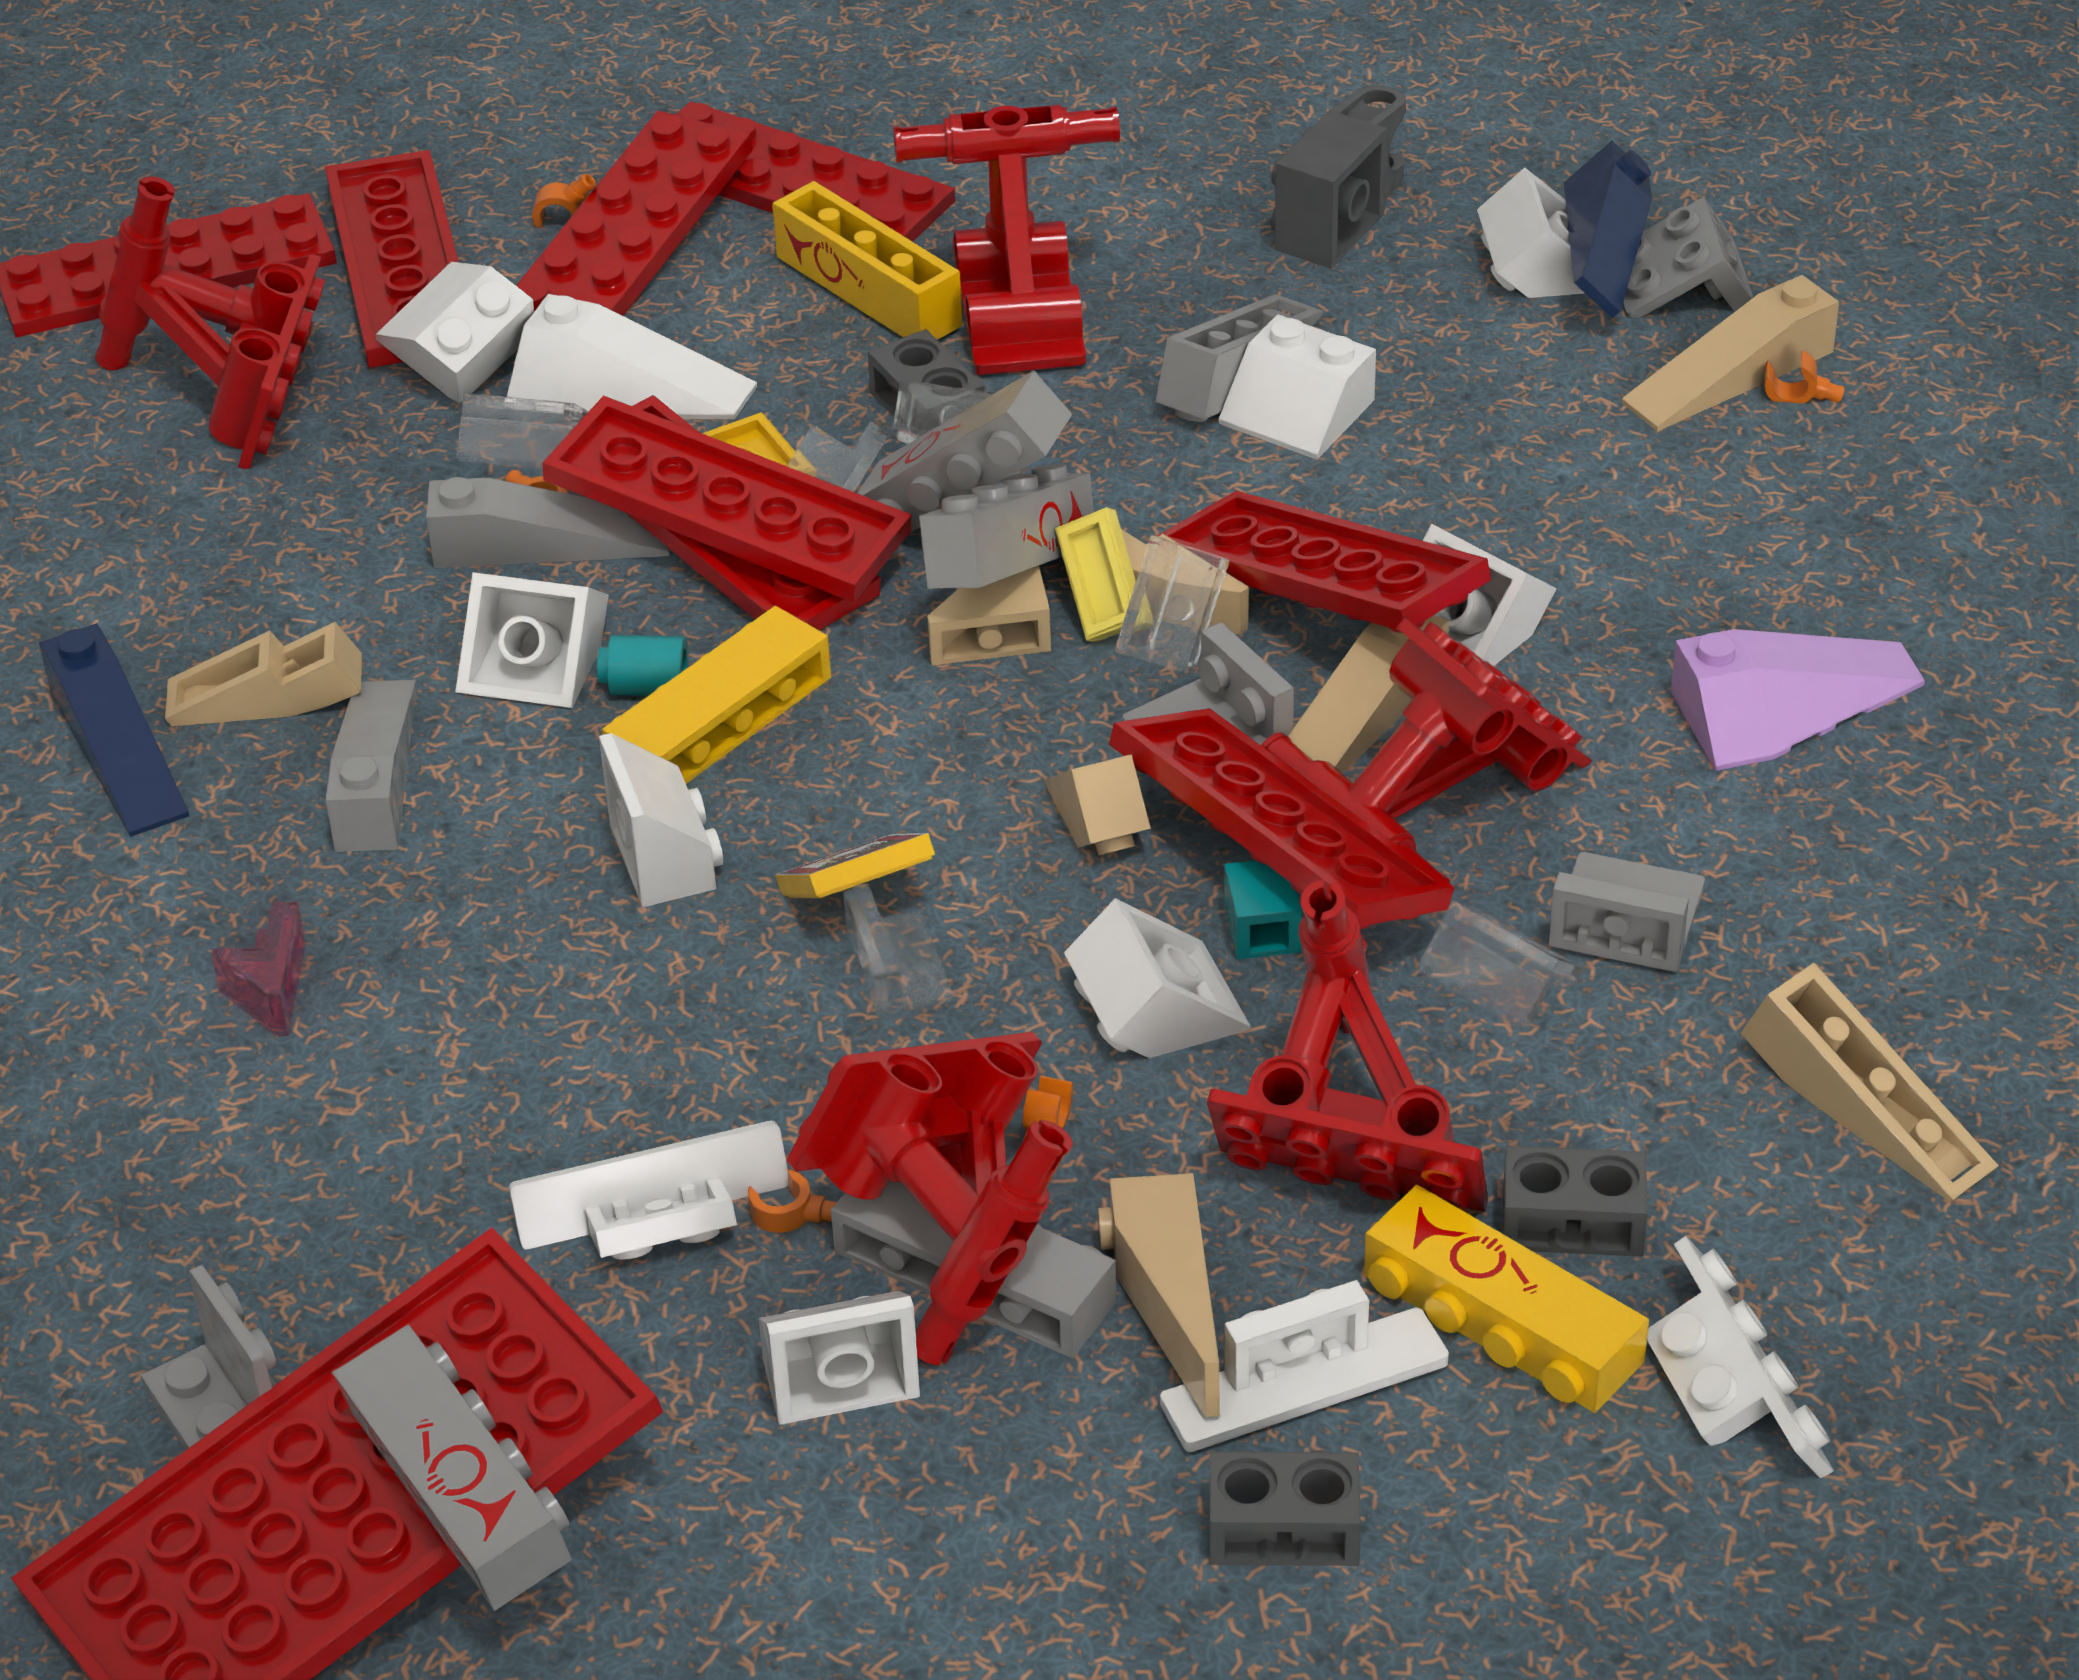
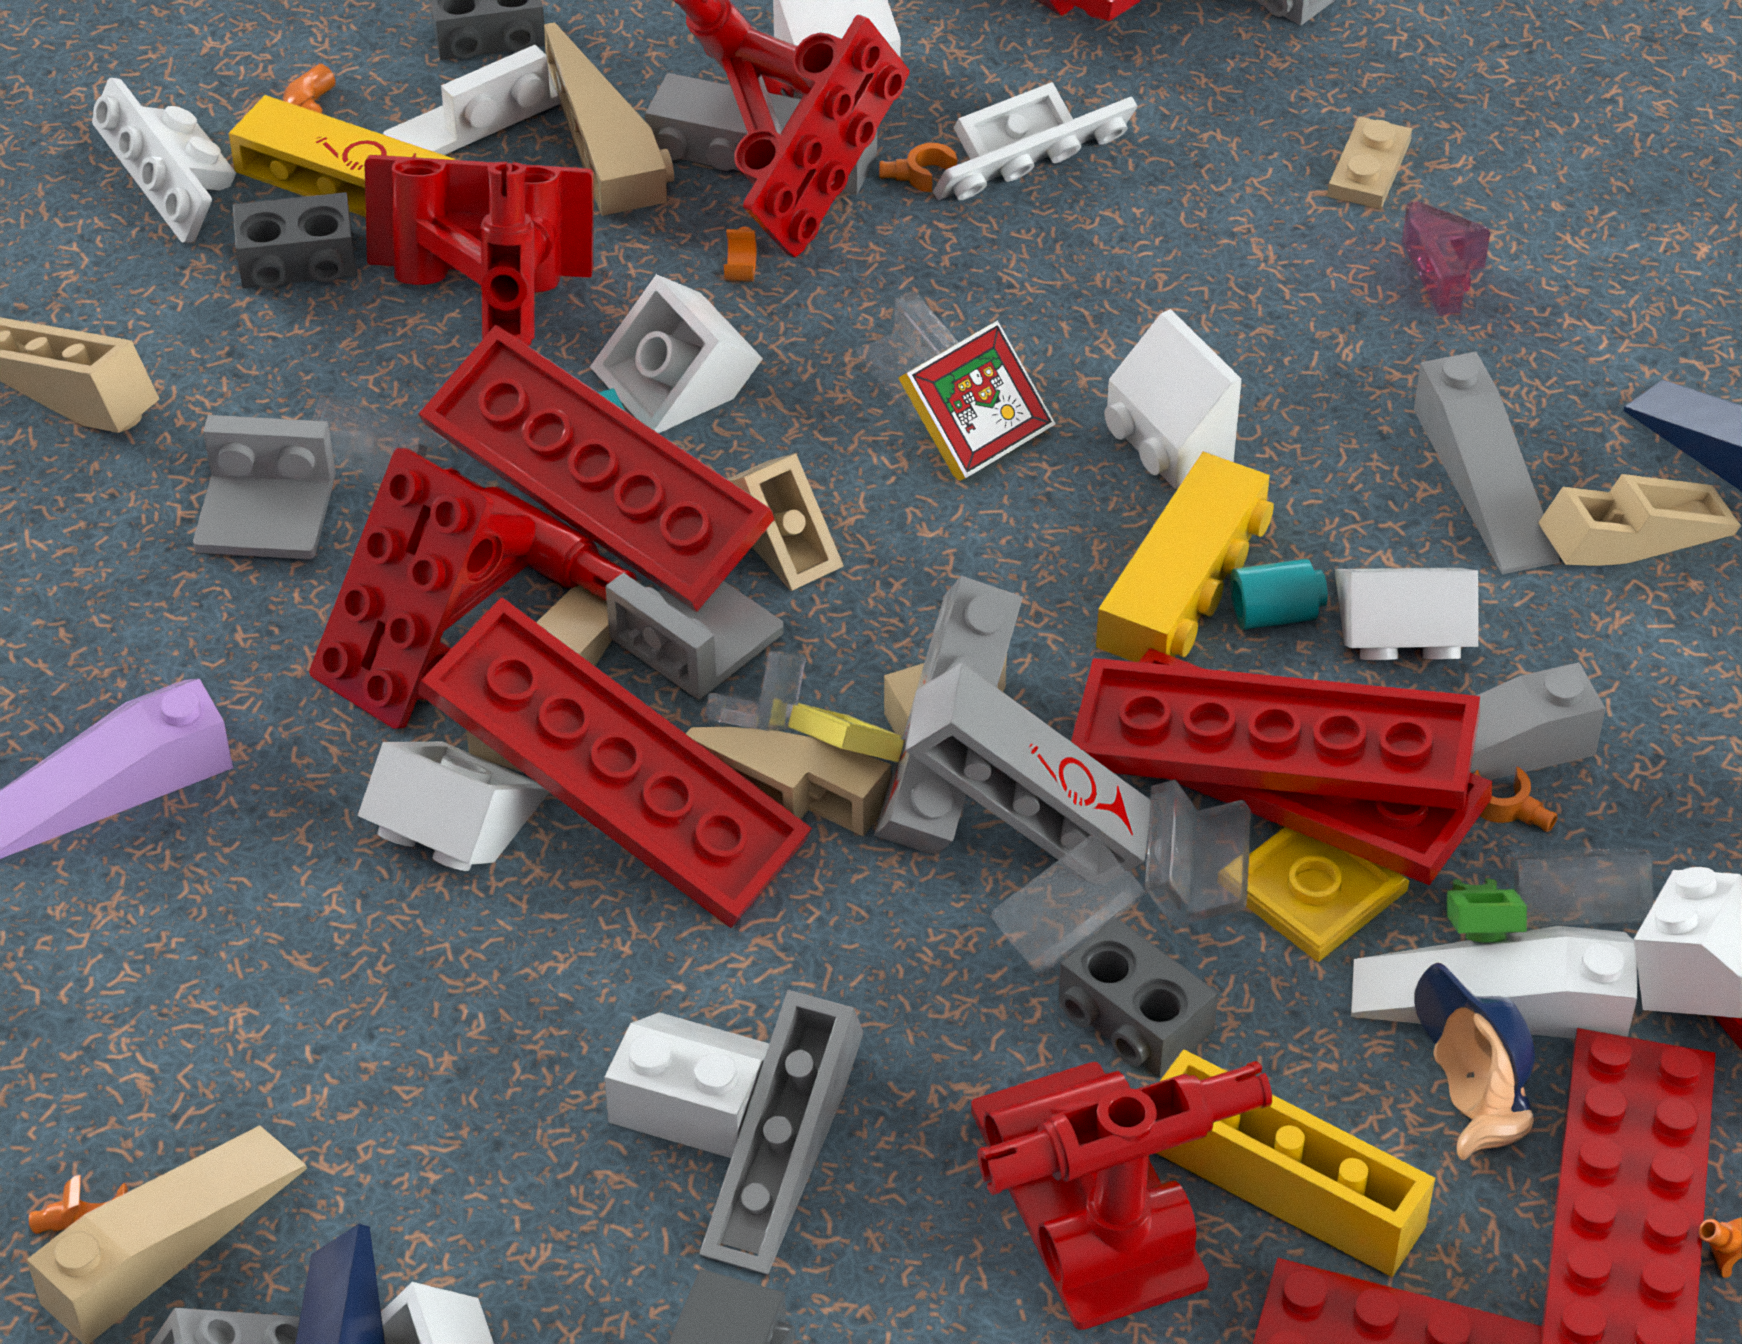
camera: 165 degrees right, 5 degrees up
(264, 1126) = (1369, 162): none -> tan plate
(620, 376) = (1485, 911): none -> bright green plate
(680, 306) = (1482, 1038): none -> hair
(1552, 1444) = (310, 87): none -> orange arm

